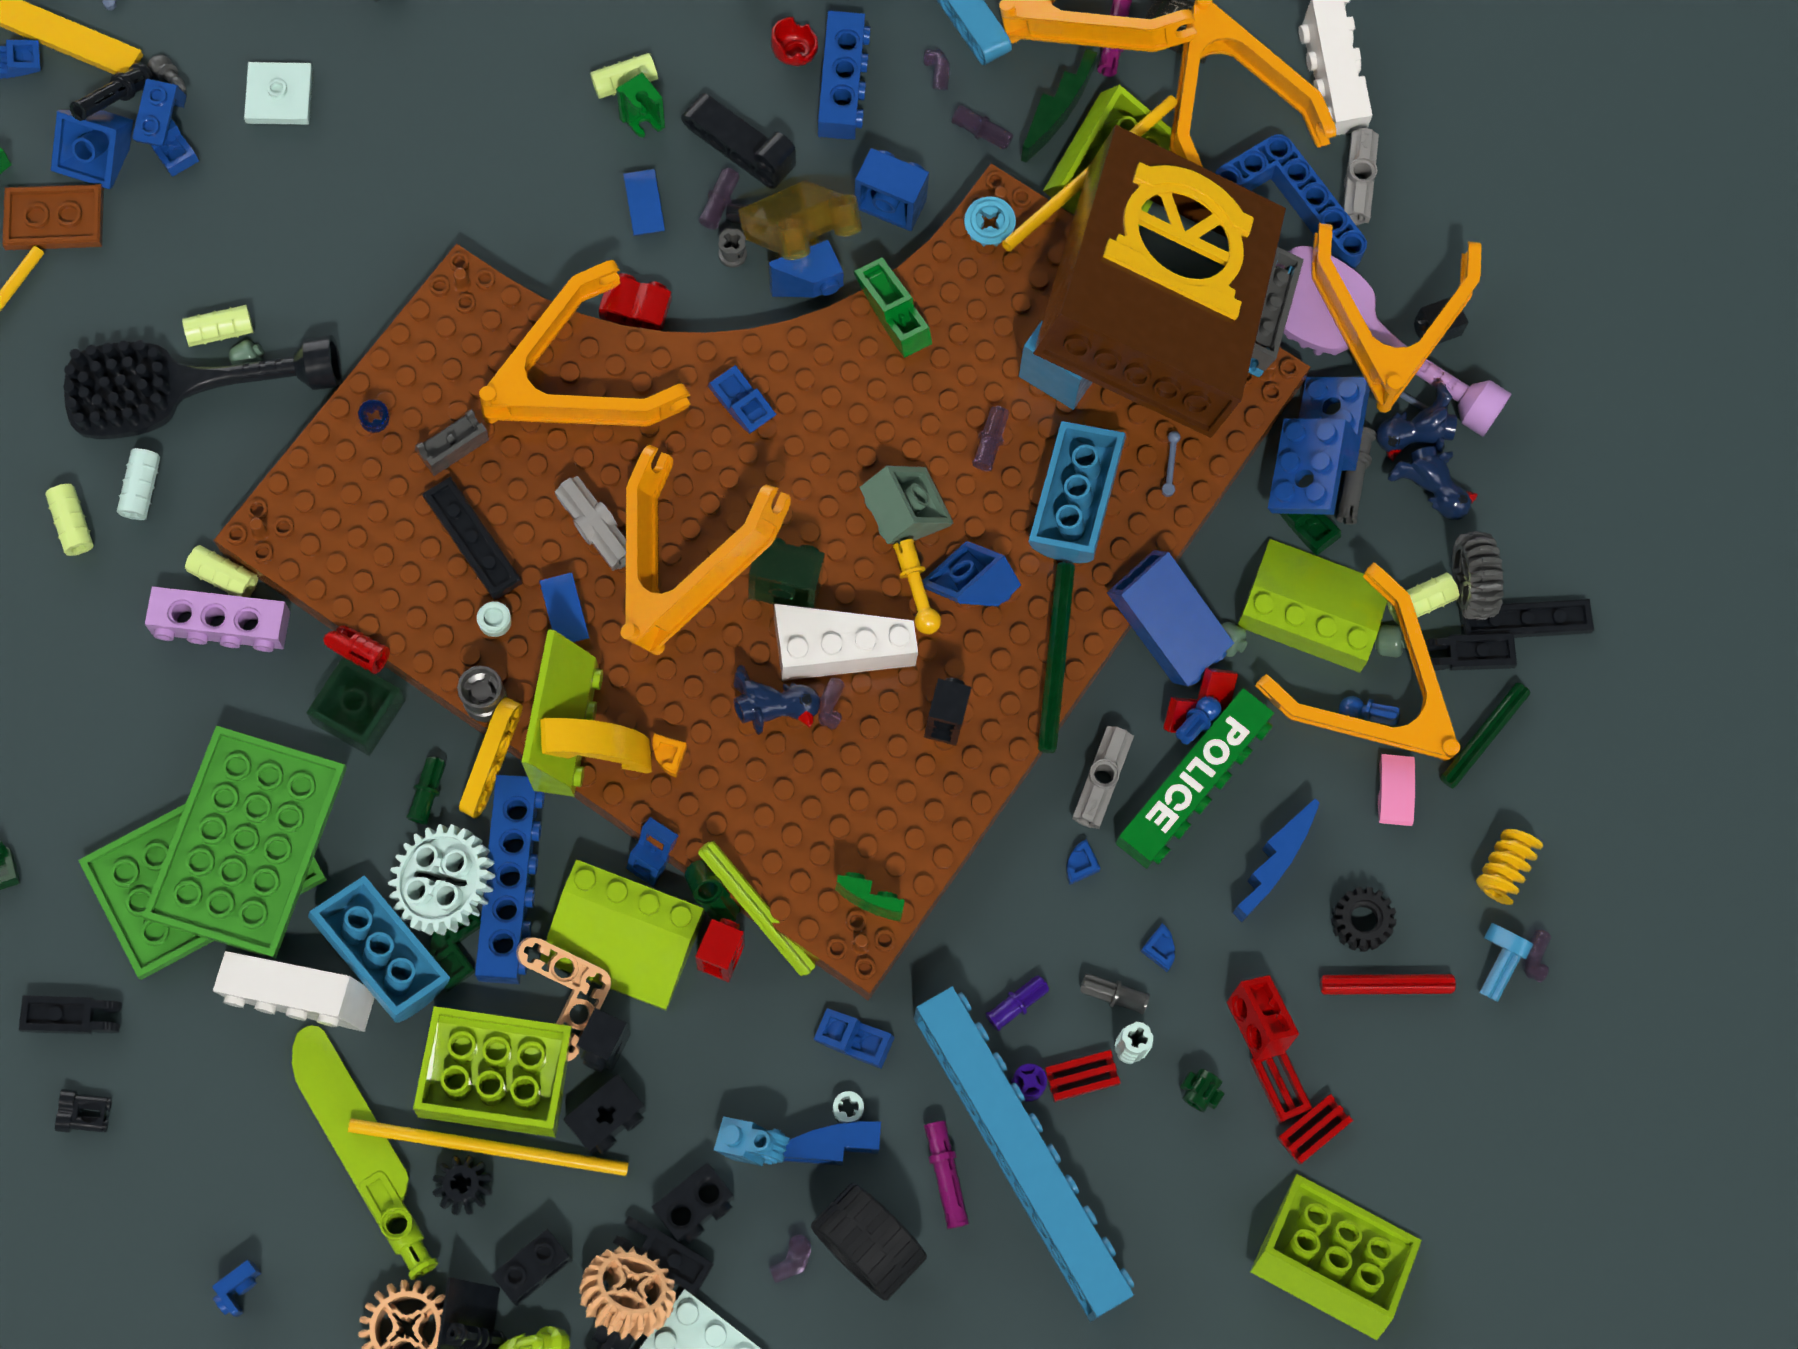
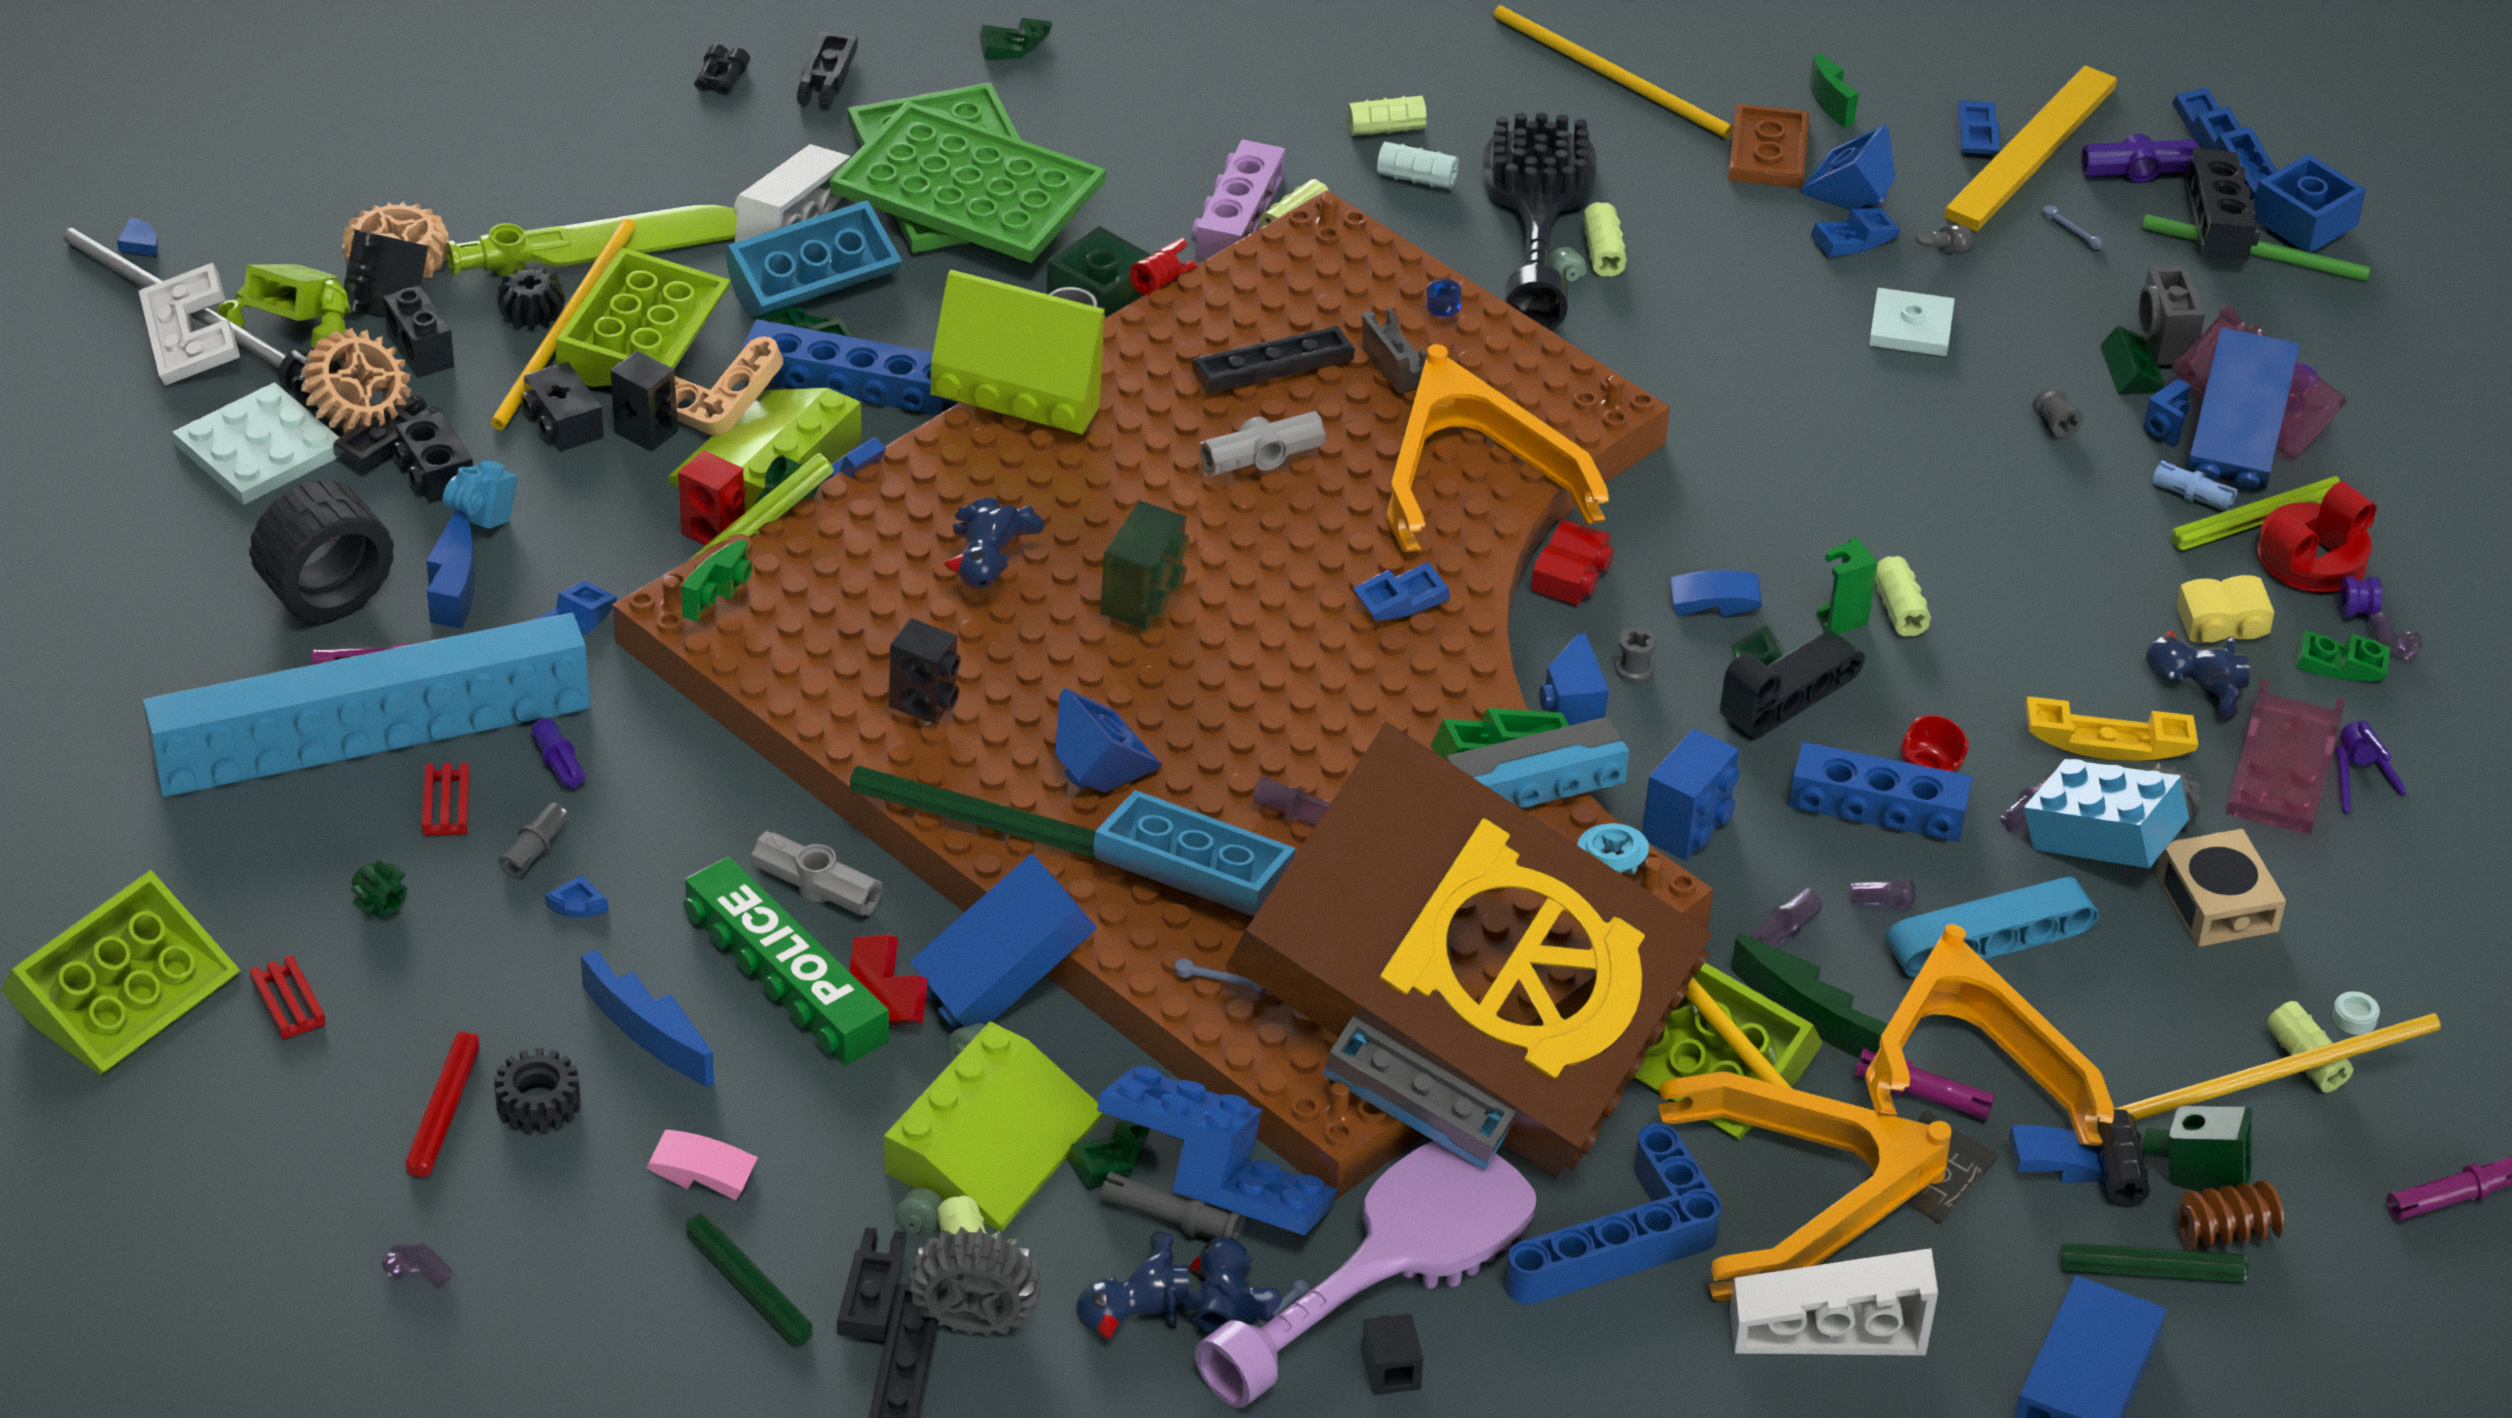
camera: 105 degrees right, 30 degrees down
(87, 106) = (1884, 137): black pin -> none
(156, 111) = (1900, 209): blue bracket -> none
(237, 1281) = (491, 135): blue bracket -> none
(449, 849) = (876, 315): light aqua gear -> none
(494, 619) = (1166, 361): light aqua tile -> none
(564, 607) = (1171, 405): blue slope -> none
(596, 740) = (966, 371): yellow slope -> none
(654, 616) = (1182, 471): light orange piece -> none
(669, 753) = (956, 466): light orange tile -> none
(701, 169) = (1761, 645): none -> clear green slope
(719, 198) = (1702, 654): clear purple axle -> none
(796, 218) = (1654, 681): clear yellow piece -> none
(828, 700) = (972, 590): arm -> none
(838, 642) = (1050, 599): white wedge -> none
(854, 1099) = (489, 607): light aqua bush -> none
(905, 503) = (1221, 707): sand green slope -> none
(921, 275) = (1550, 763): none -> dark azure piece
(927, 619) = (1132, 695): yellow pin -> none
(1032, 1077) = (456, 743): dark purple wheel -> none
(1081, 863) = (714, 846): blue tile -> none
(1139, 1032) = (460, 822): light aqua axle -> none
(1199, 719) = (857, 959): blue axle -> none
(1262, 1017) = (443, 947): red brick -> none
(1270, 1092) = (357, 982): red tile -> none
(1360, 161) = (1647, 1309): light grey piece -> none
(1372, 712) = (822, 1156): blue axle -> none
(1383, 366) = (1304, 1215): light orange piece -> none
(1430, 731) = (773, 1196): light orange piece -> none
(1505, 865) = (551, 1248): yellow piece -> none
(1512, 950) = (430, 1220): dark azure piece -> none

